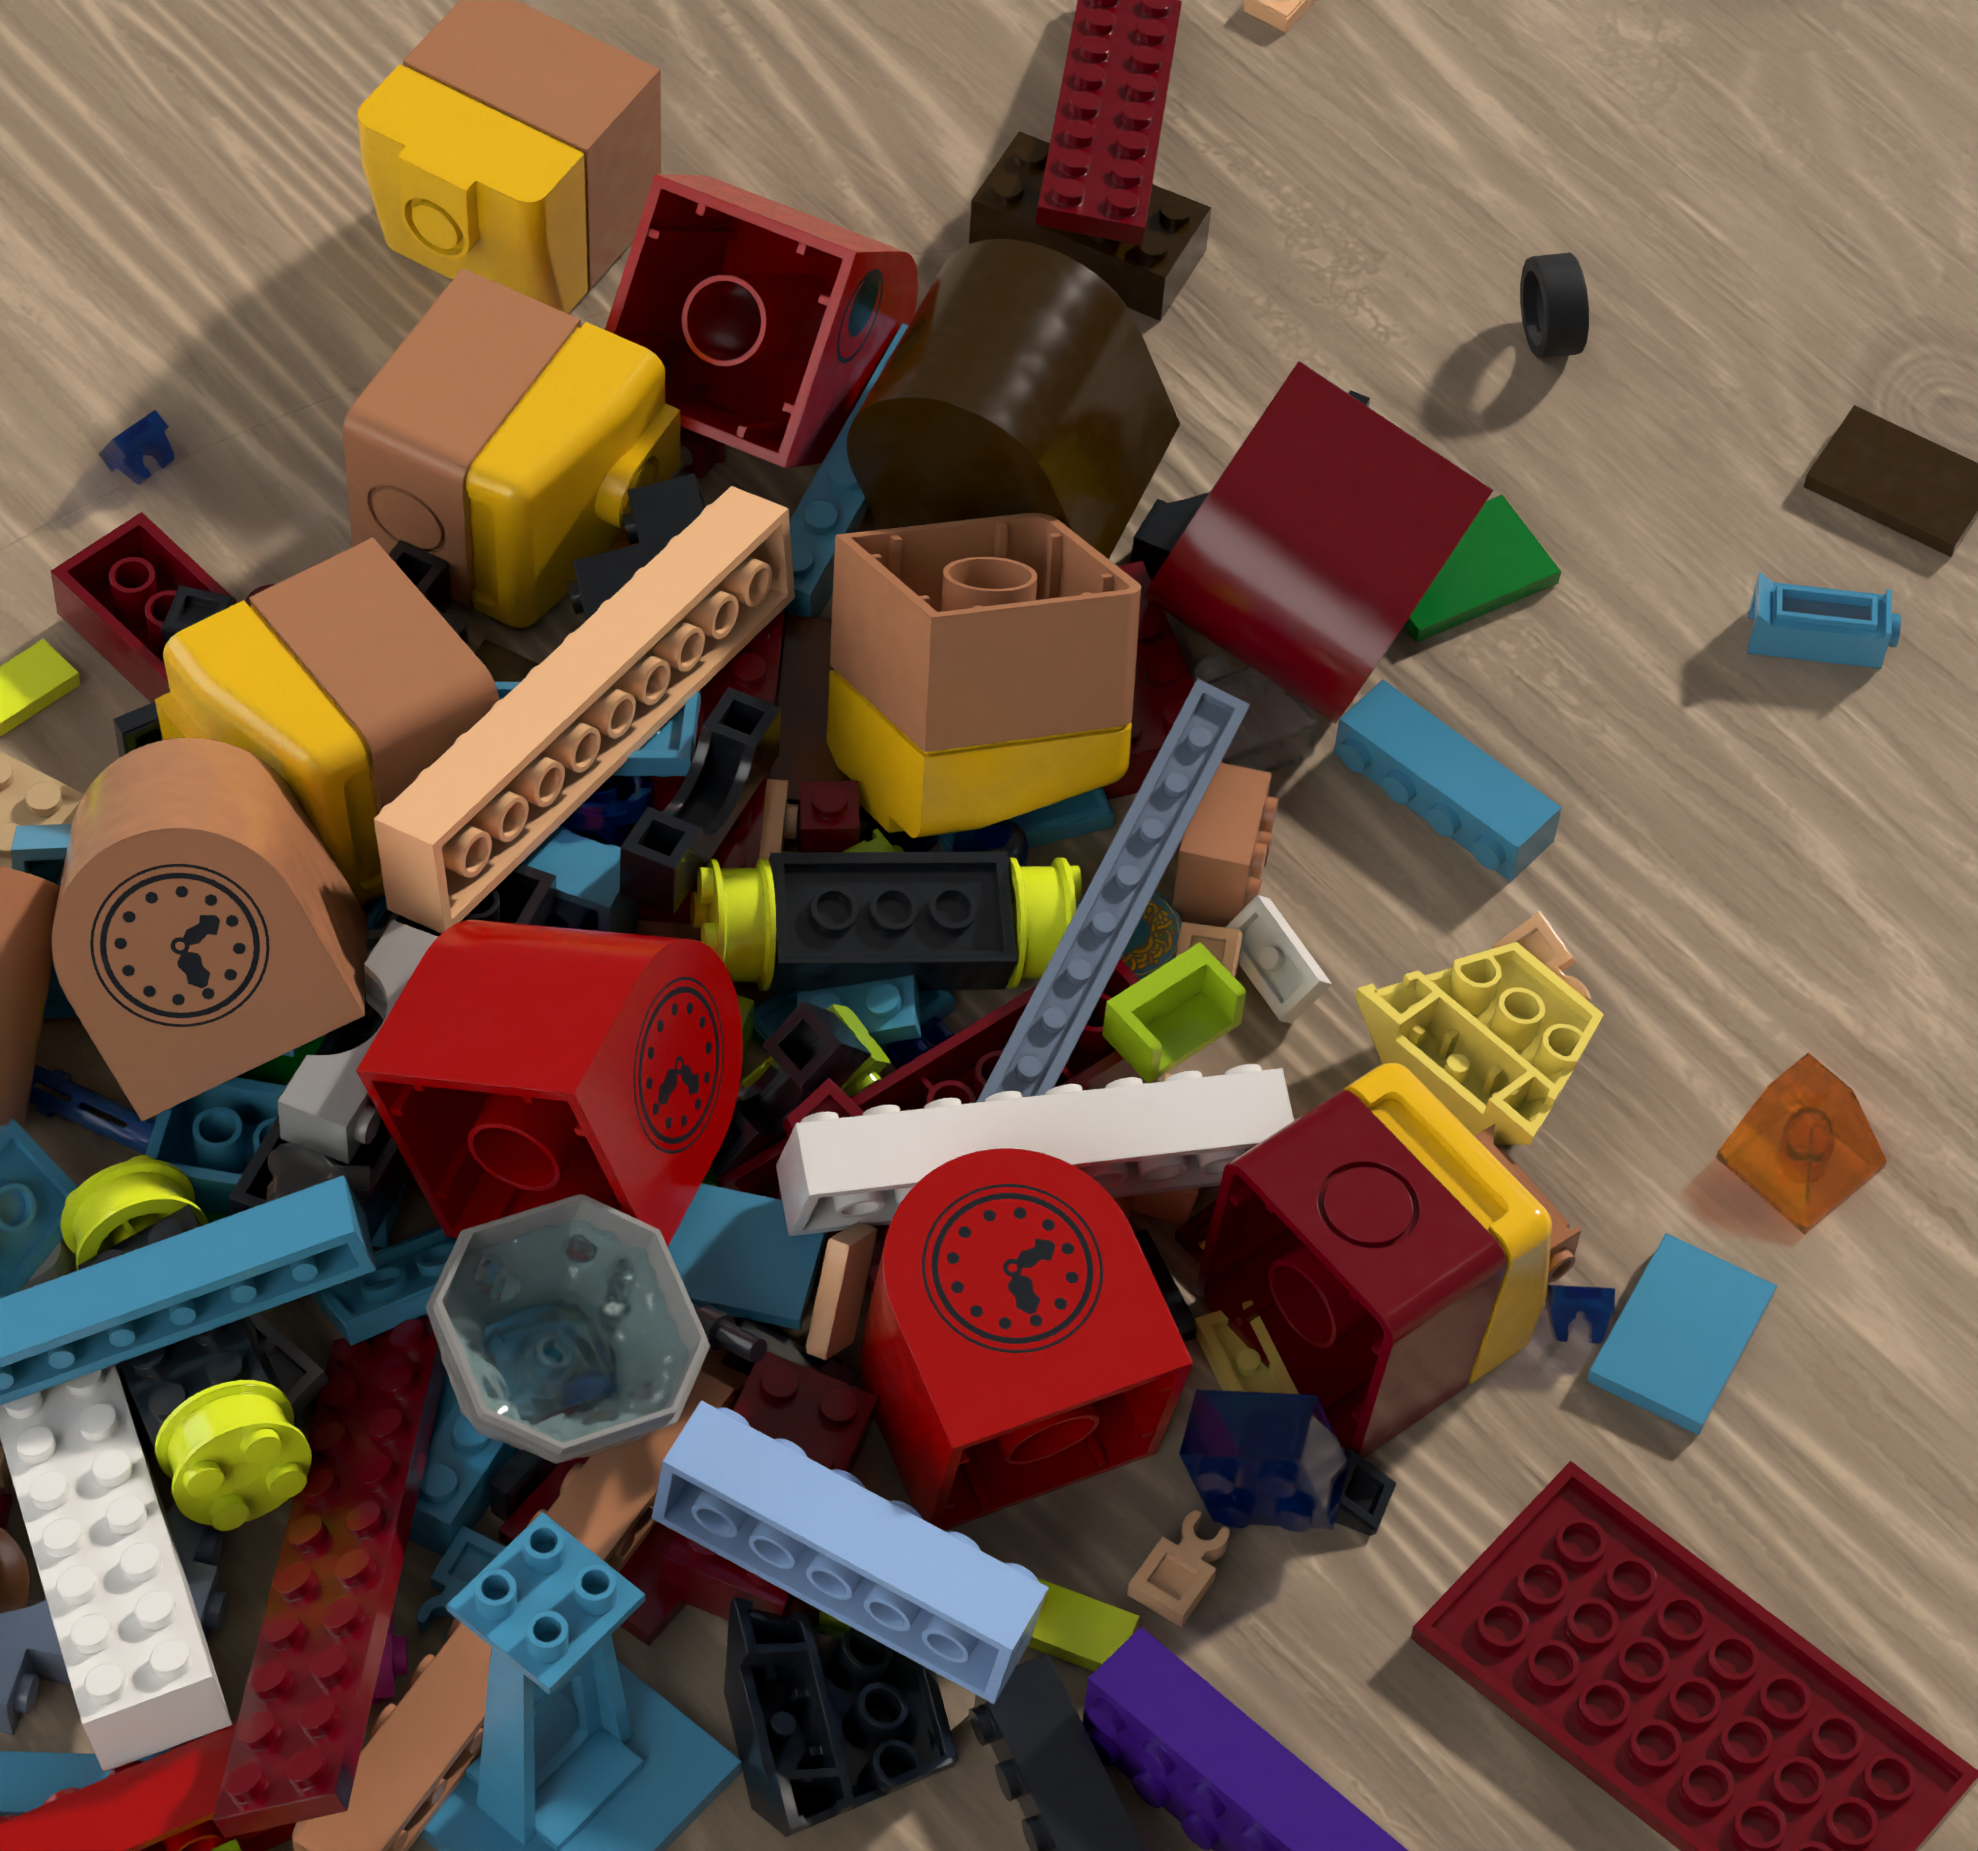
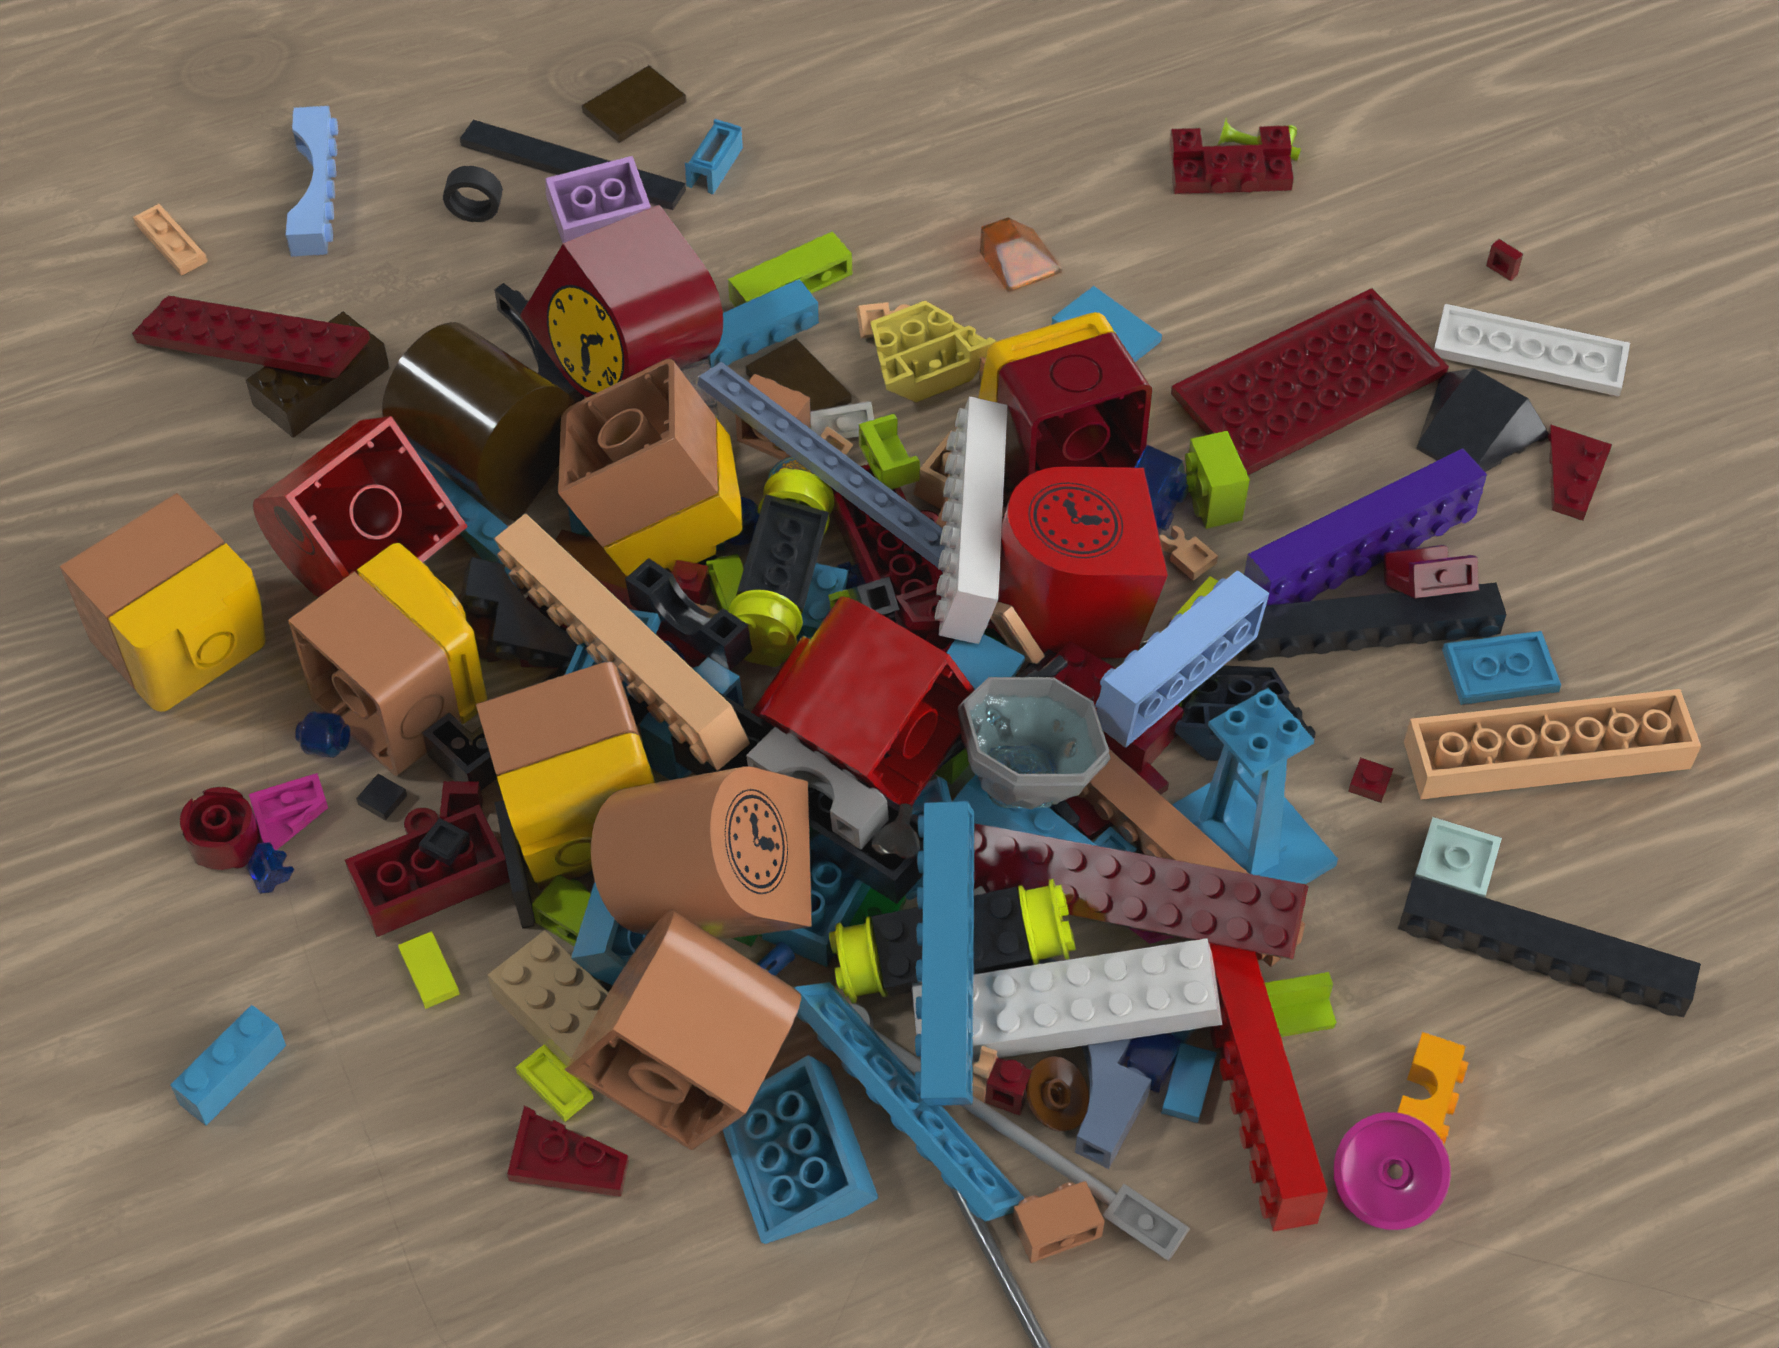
camera: 70 degrees left, 0 degrees up
(49, 1714) = (1154, 1057): none -> clear blue brick
(180, 363) = (220, 829): none -> dark red brick
(246, 437) = (287, 808): none -> dark pink wing
(307, 543) = (381, 796): none -> black tile
(1347, 1567) = (1216, 479): none -> lime brick
(1351, 879) = (800, 371): none -> dark brown tile
(1413, 123) = (308, 221): none -> light blue arch
(1602, 813) = (814, 263): none -> lime brick
(1613, 476) = (595, 197): none -> lavender brick
(1713, 437) = (558, 159): none -> black tile

